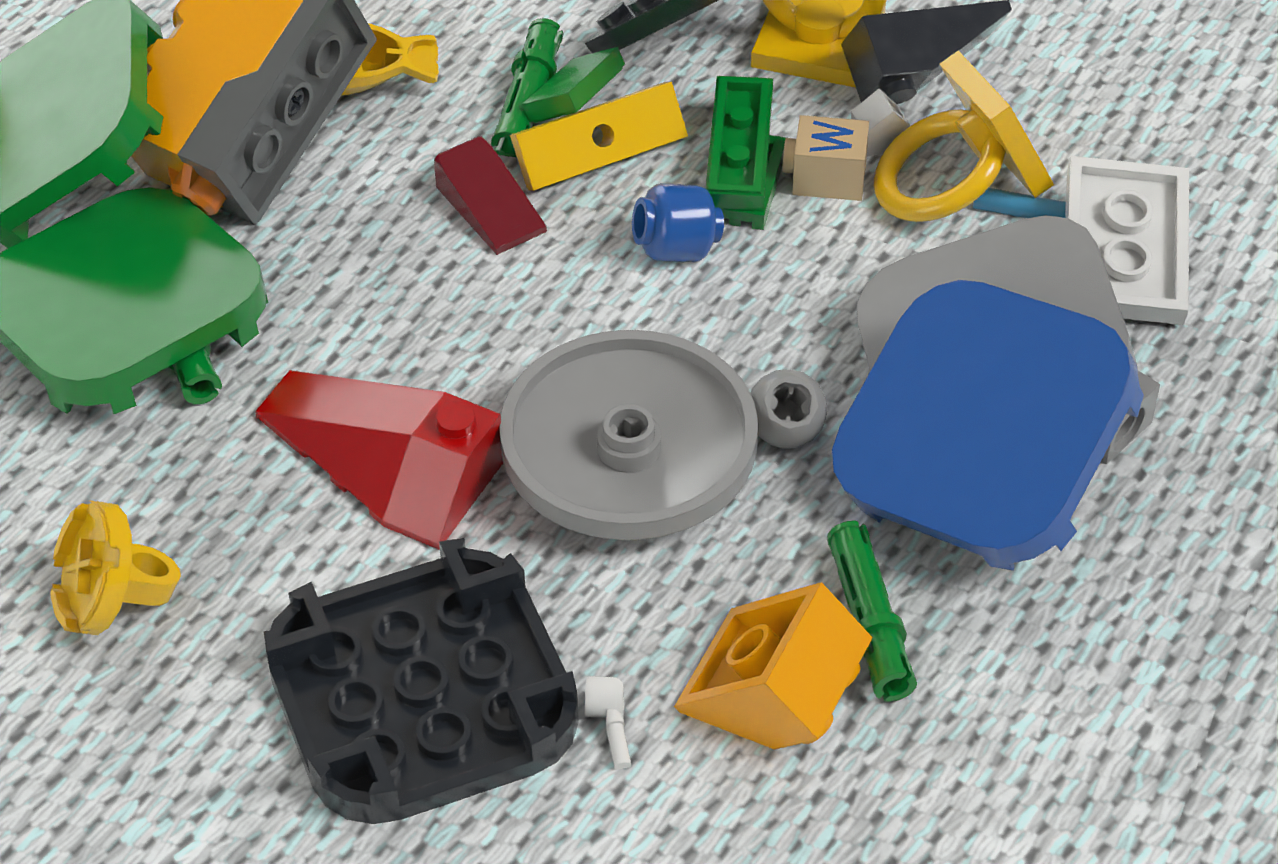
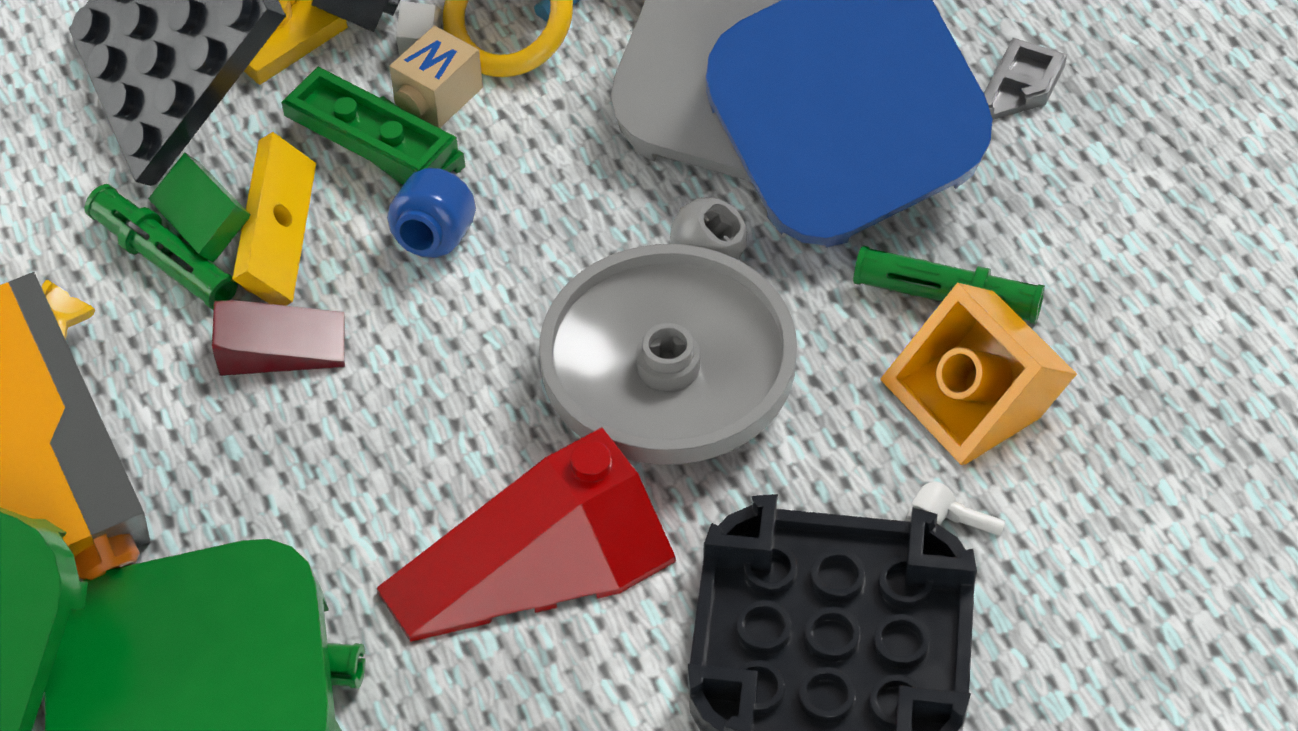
camera: 60 degrees left, 5 degrees up
(1186, 570) = (1023, 78): none -> flat silver tile

